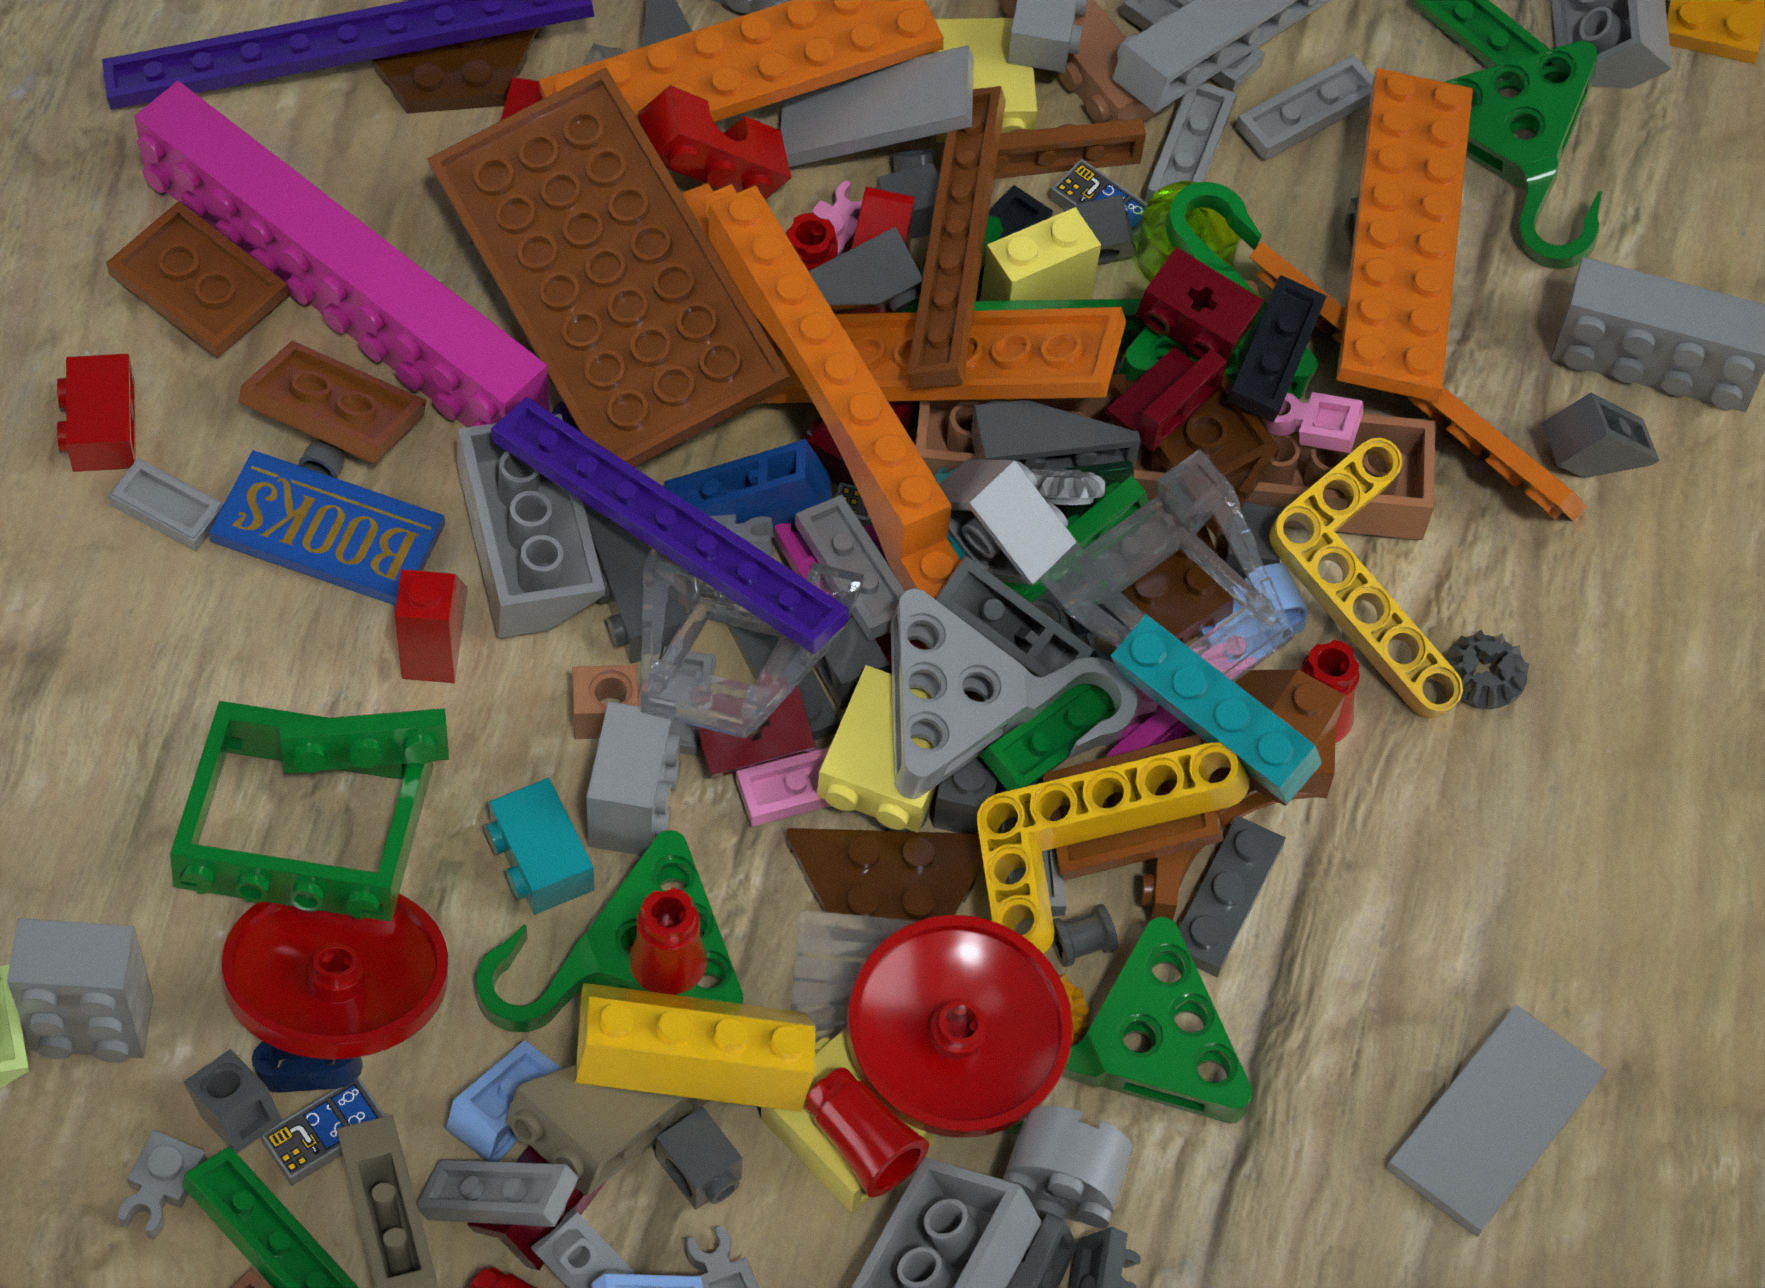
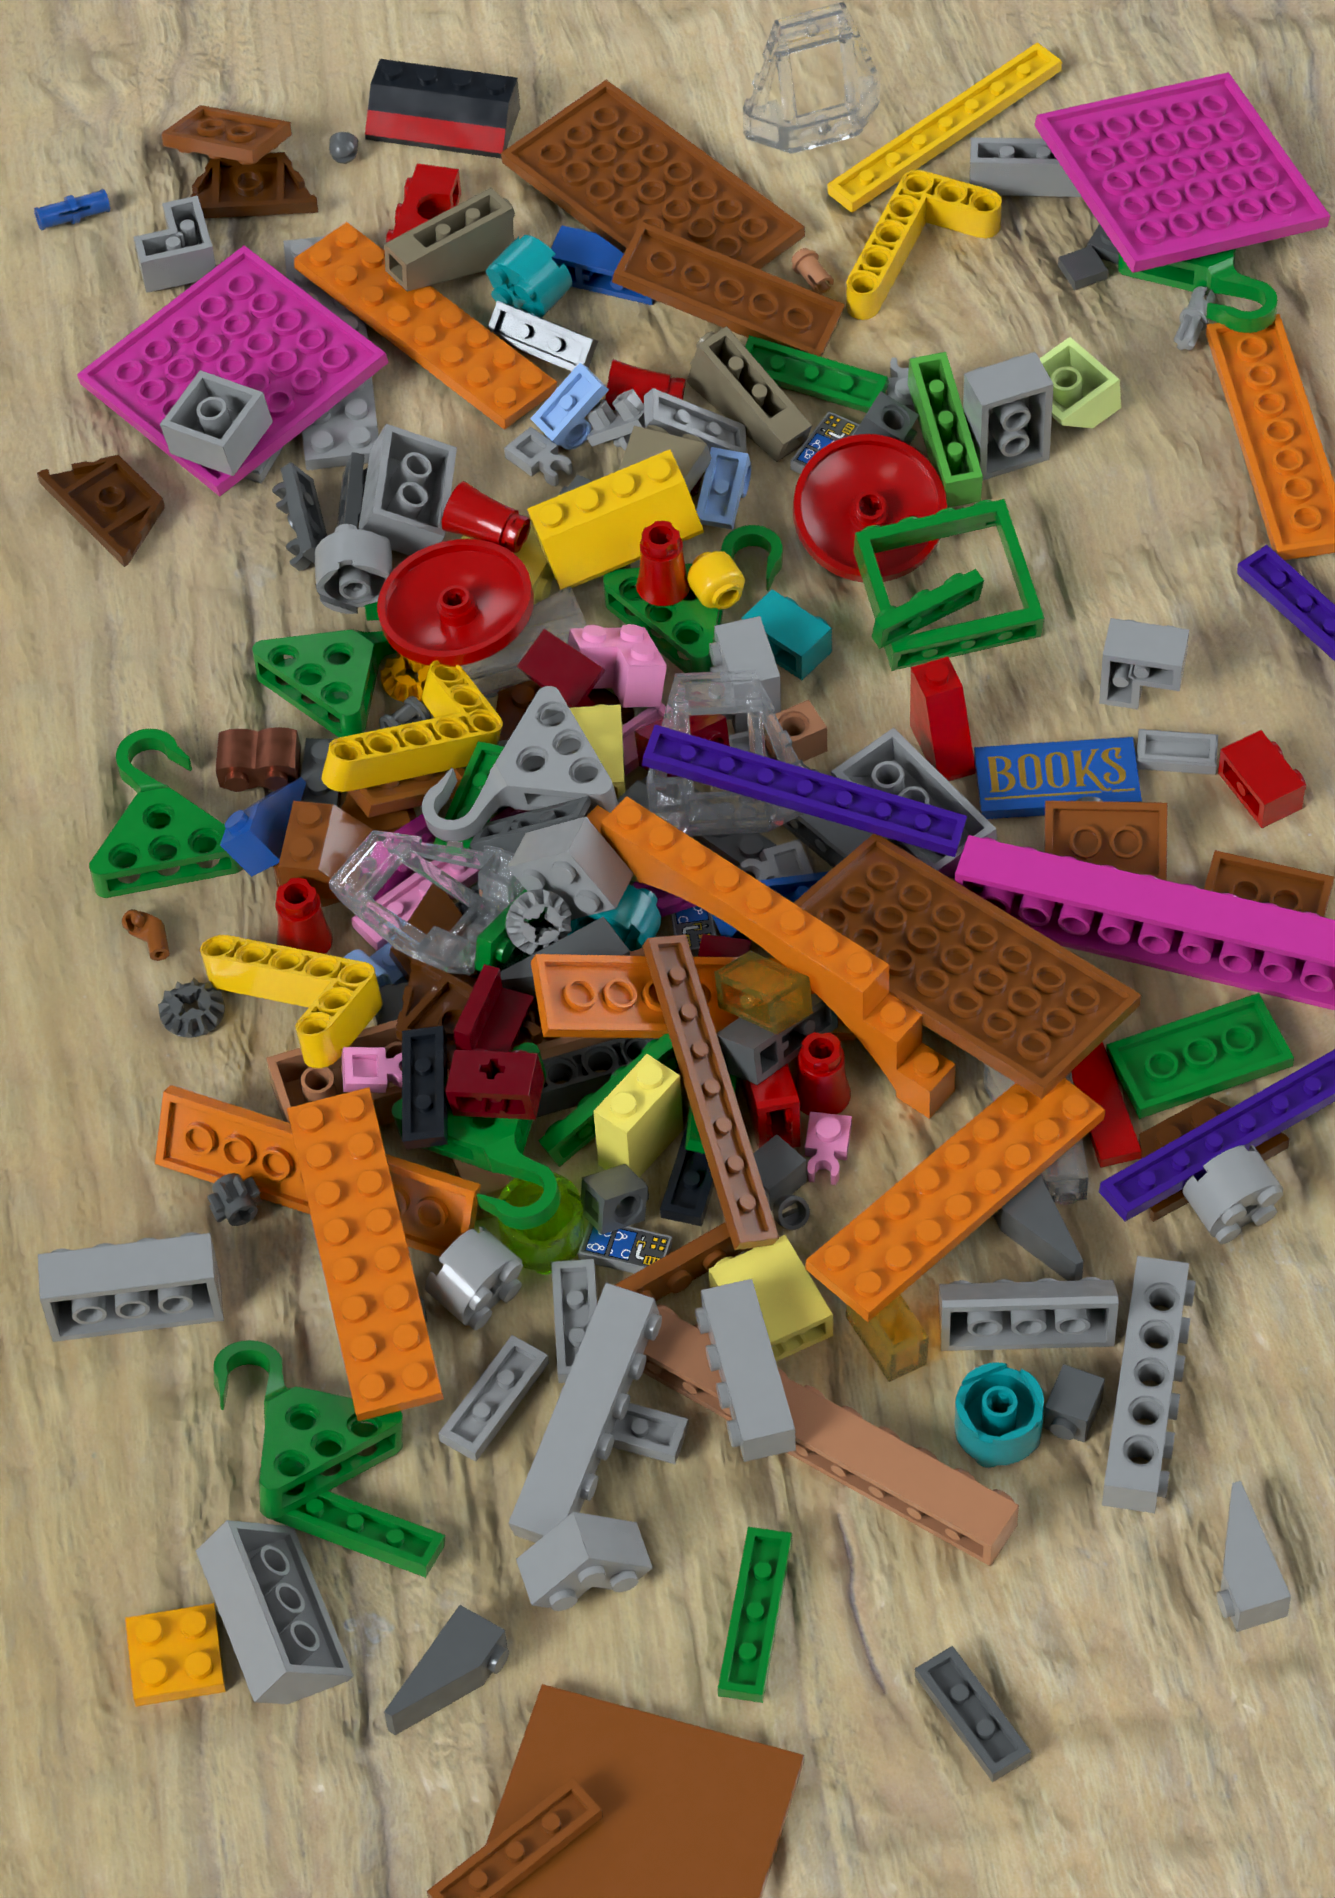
camera: 165 degrees right, 5 degrees down
(150, 577) = (1139, 657): none -> light grey brick
(165, 1038) = (945, 428): none -> bright green brick
(375, 141) = (1199, 1055): none -> green plate
(604, 908) = (716, 580): none -> yellow head
(694, 146) = (958, 1085): red arch -> none
(769, 861) = (630, 661): none -> bright pink brick
(850, 290) = (763, 992): none -> clear yellow brick
(872, 856) = (560, 665): none -> dark red panel
(881, 108) = (809, 1211): light grey tile -> none
(1216, 708) = (361, 794): teal brick -> none
(1289, 200) = (475, 1277): none -> light grey brick
(1294, 958) = (257, 758): none -> copper brick
(1322, 834) = (257, 833): none -> blue slope
(1447, 943) = (157, 829): none -> green piece
(1496, 1120) = (87, 727): light grey tile -> none
(1504, 791) = (149, 929): none -> dark orange arm
(1514, 405) = (235, 1199): none -> dark grey gear
(1598, 438) = (158, 1201): dark grey slope -> none

